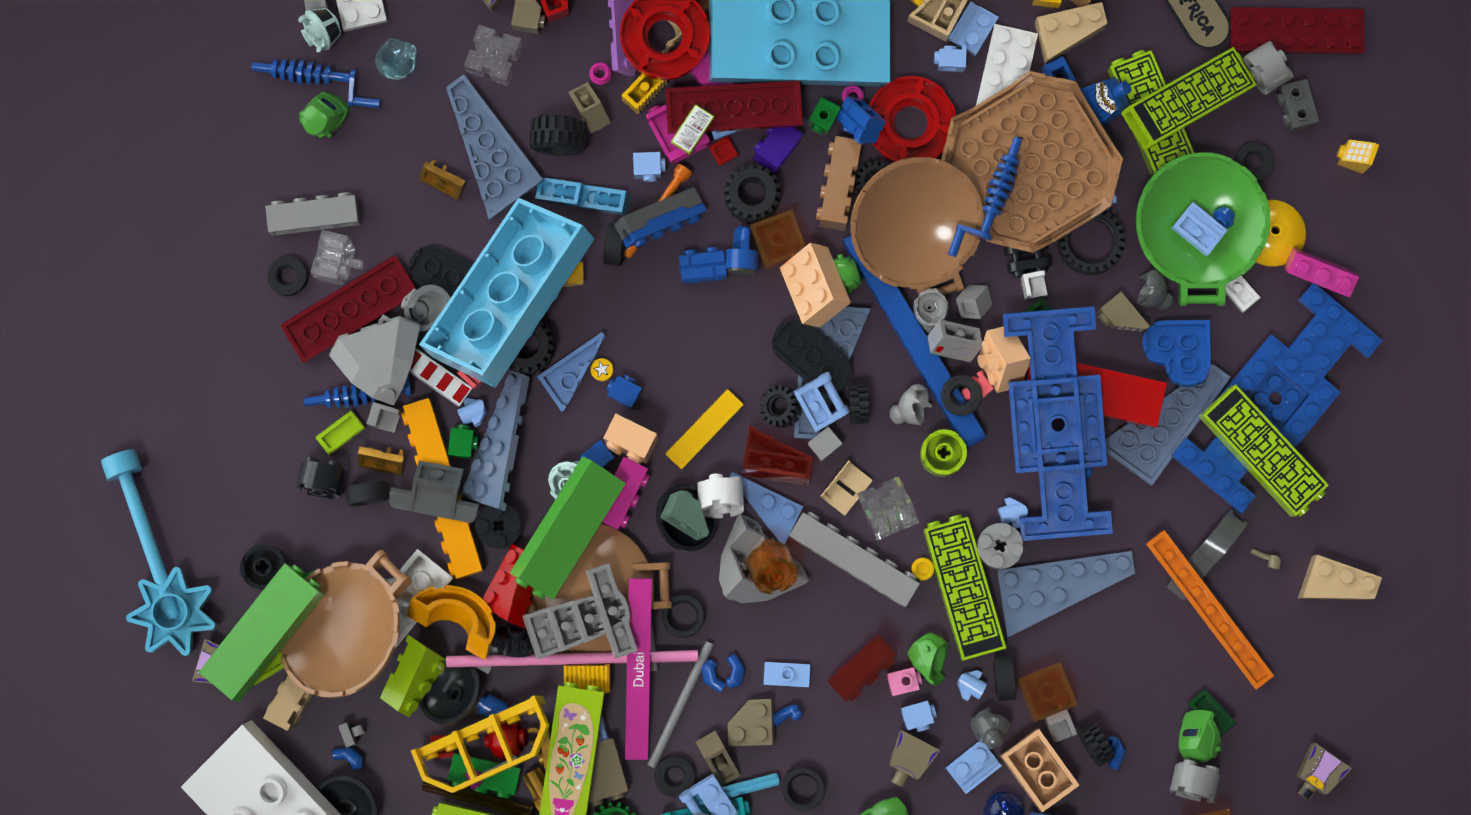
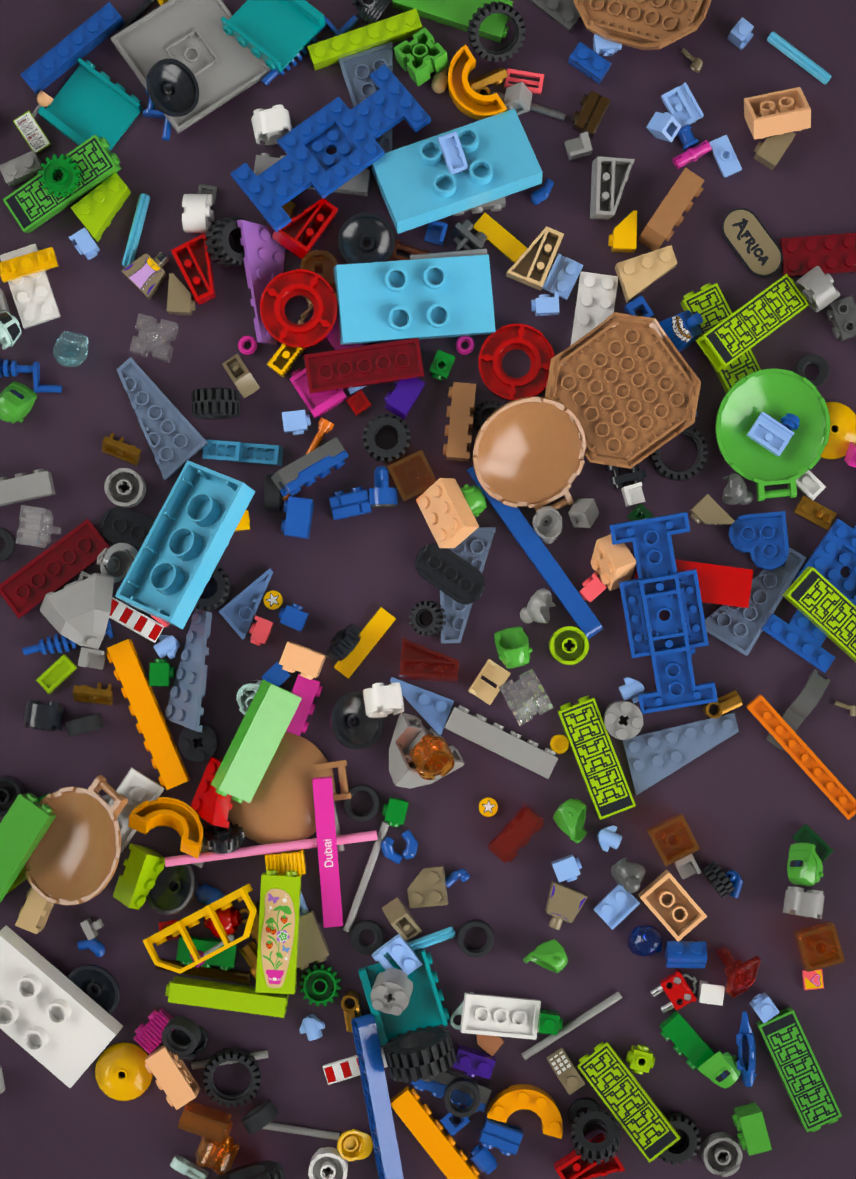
camera: 10 degrees left, 5 degrees up
(435, 494) = (141, 720): dark grey plate -> none
(436, 212) = (119, 478): none -> light grey brick
(584, 404) = (260, 630): none -> coral brick
(584, 619) = (277, 817): light grey slope -> none
(641, 275) = (298, 517): none -> blue brick
(680, 425) = (344, 643): none -> black gear
(685, 514) = (355, 719): sand green slope -> none
(692, 129) = (330, 389): tile -> none
(722, 629) = (395, 811): none -> green brick
(786, 674) = (453, 843): light blue plate -> none
(814, 404) = (455, 614): light blue plate -> none
(824, 444) = (467, 646): light grey panel -> none
(831, 635) = (488, 806): none -> yellow tile
(858, 403) = (493, 610): black tyre -> none
(860, 120) = (473, 367): blue brick -> none
(877, 449) = (512, 647): none -> bright green helmet
(904, 681) = (552, 840): bright pink brick -> none
(955, 340) = (570, 549): light grey brick -> none
(975, 395) = (580, 607): black tyre -> none
(995, 201) = (594, 428): blue piece -> none
(1004, 678) = (636, 831): black tyre -> none
(1120, 539) = (725, 704): none -> pearl gold piece
(1245, 326) = (815, 513): none -> pearl gold plate

